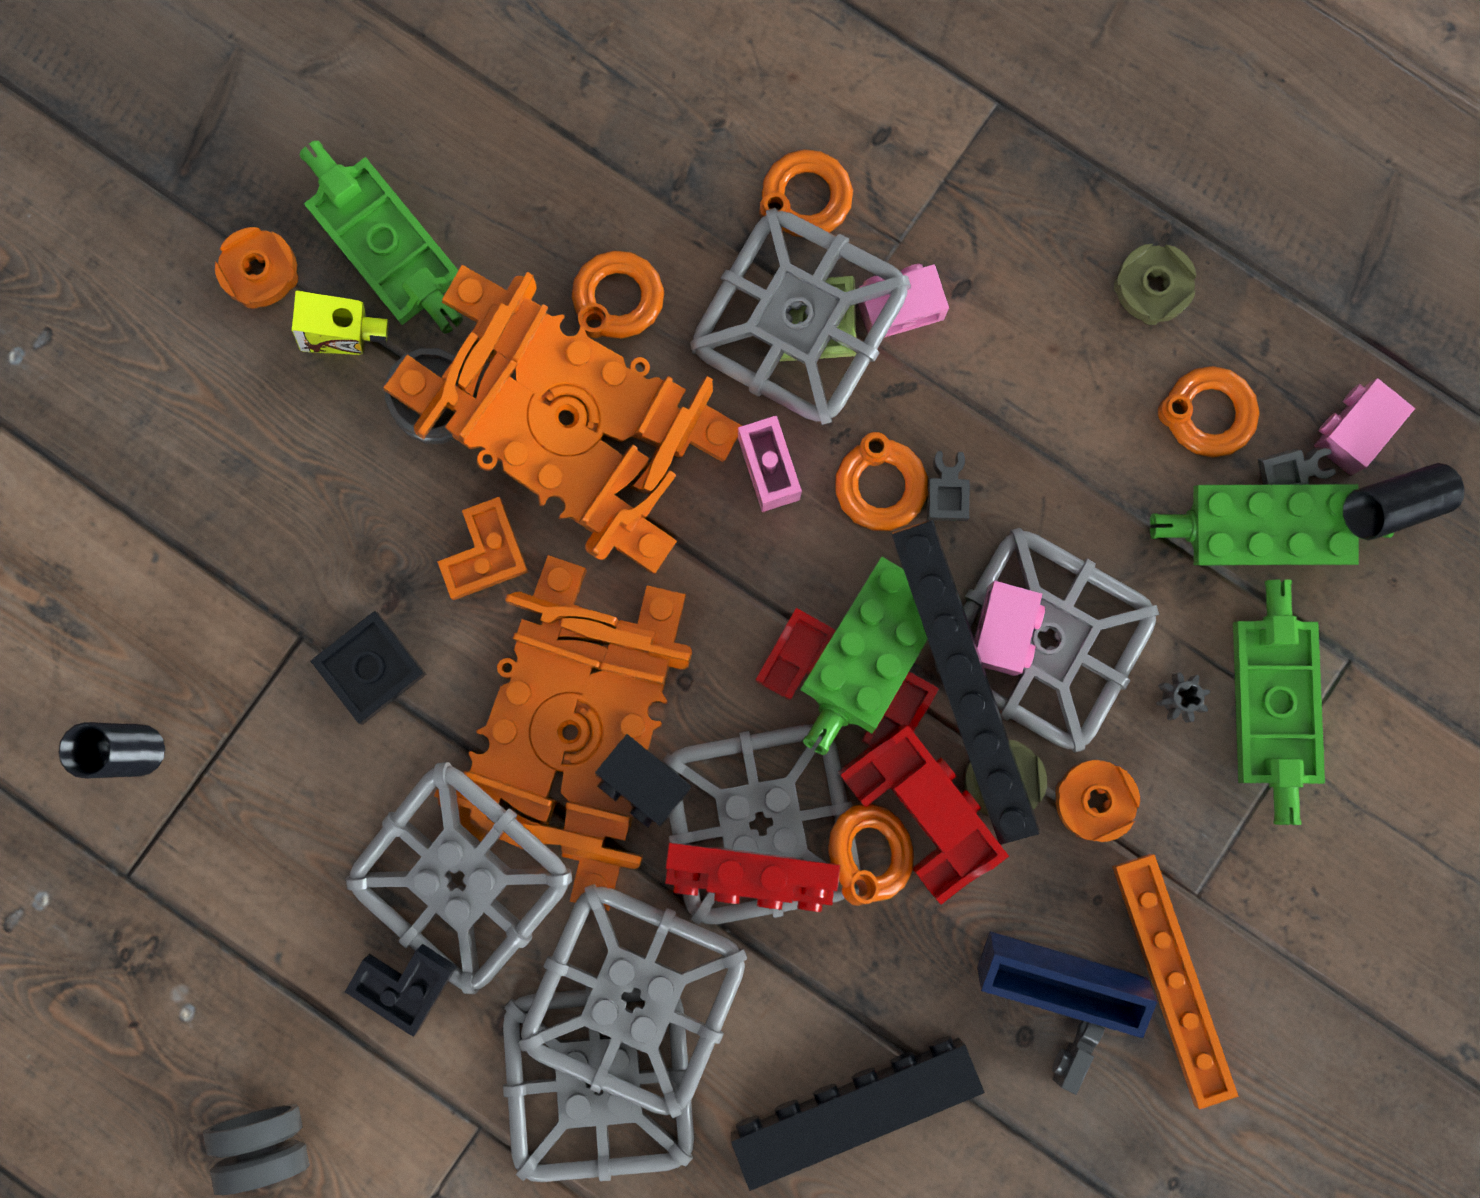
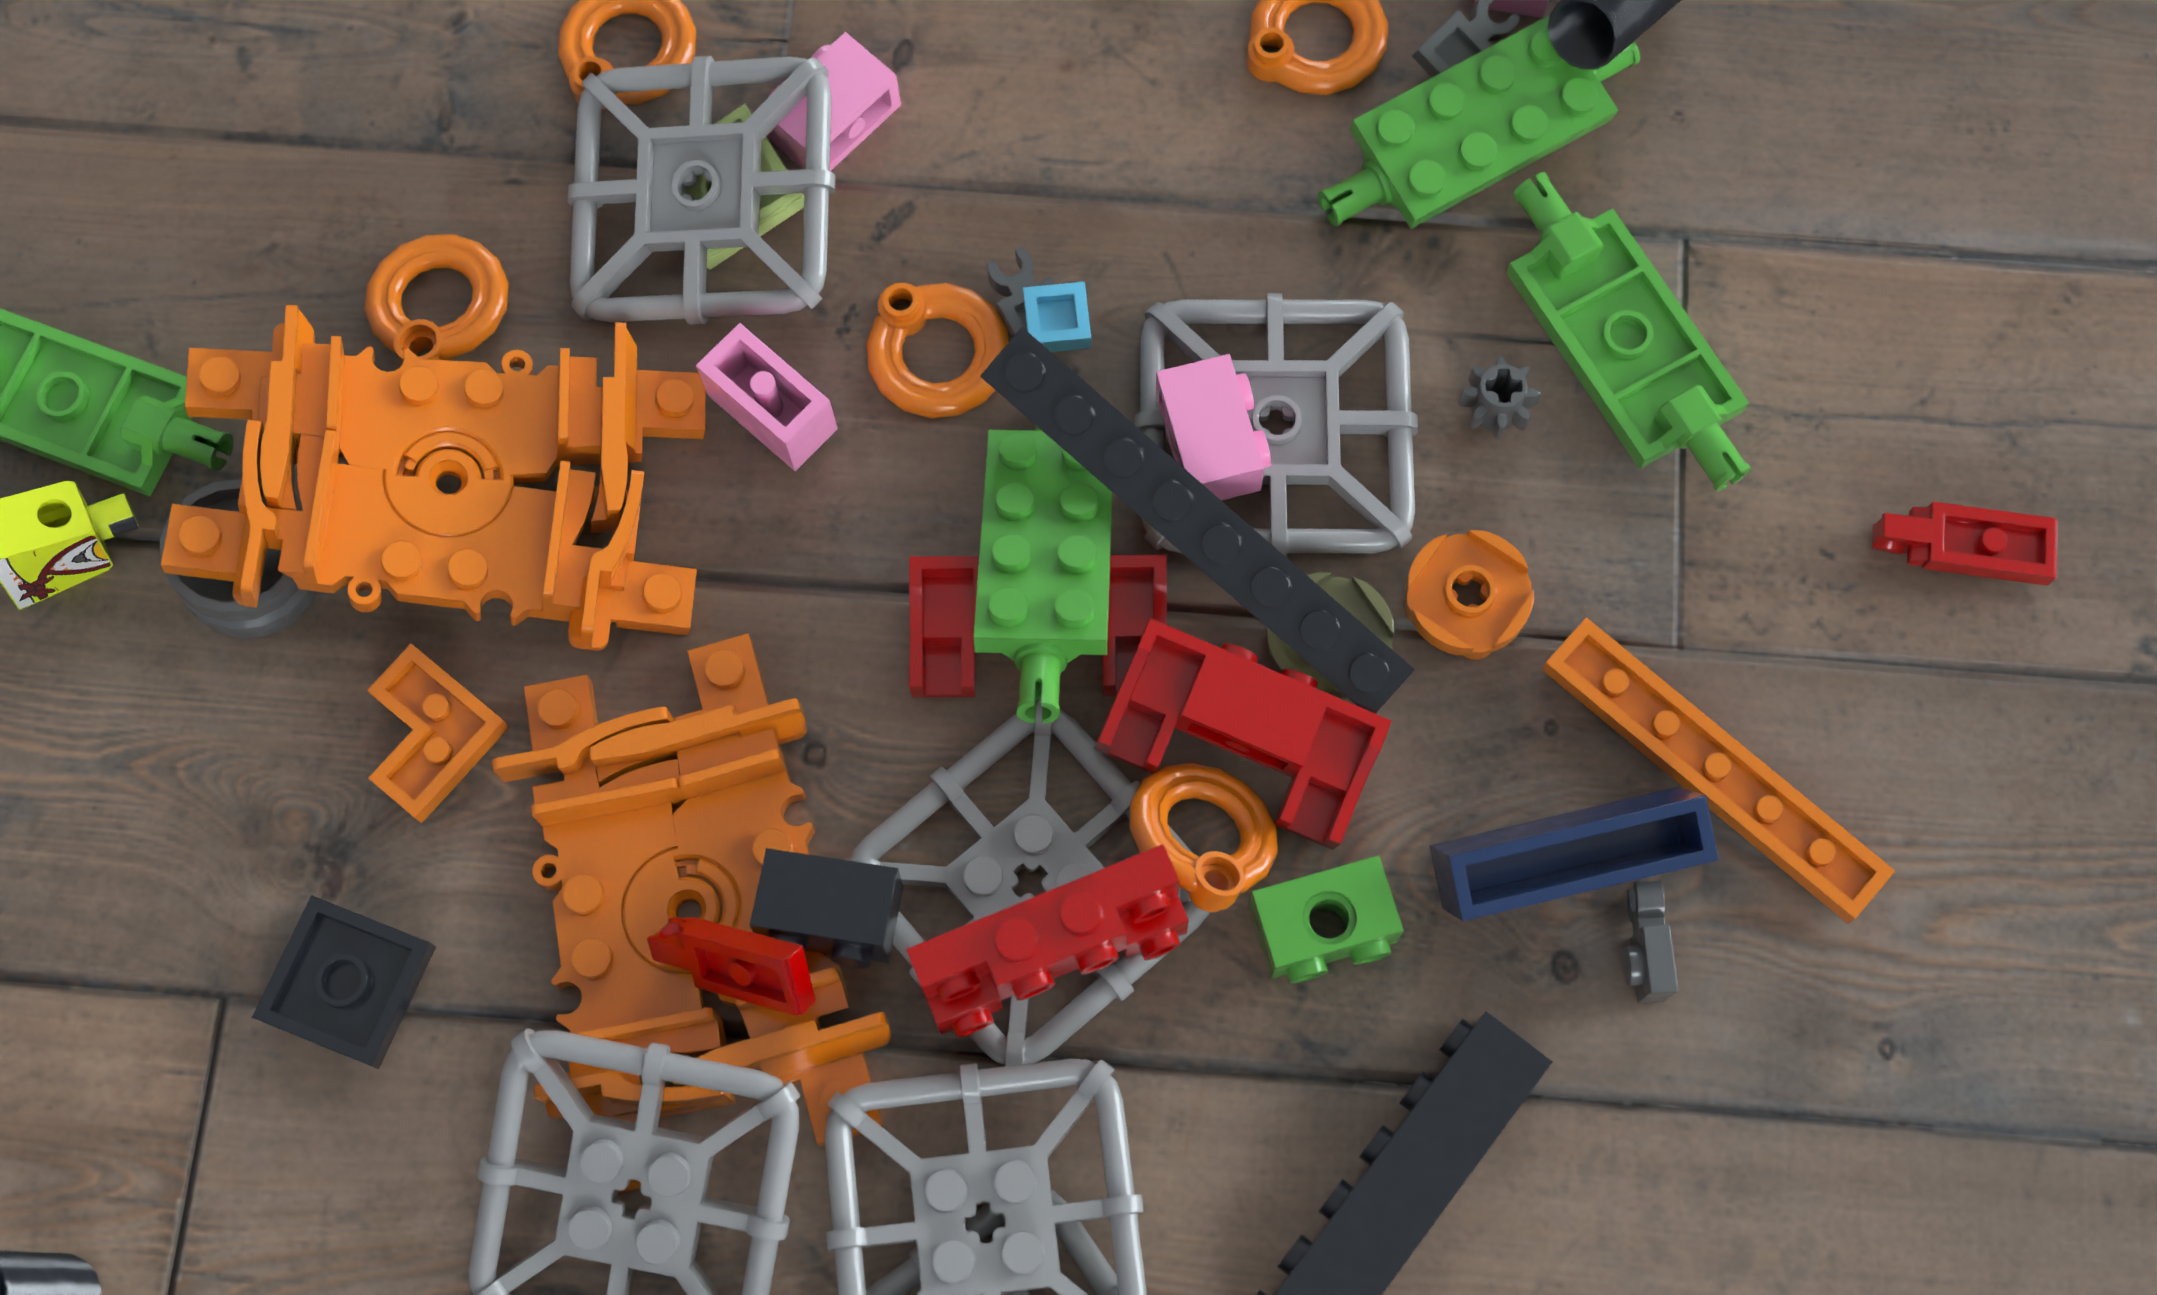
camera: 25 degrees left, 10 degrees down
(577, 787) = (737, 963): none -> red hinge
(934, 944) = (1354, 892): none -> bright green brick
(958, 510) = (1058, 316): none -> medium azure plate
(1403, 936) = (1973, 542): none -> red hinge

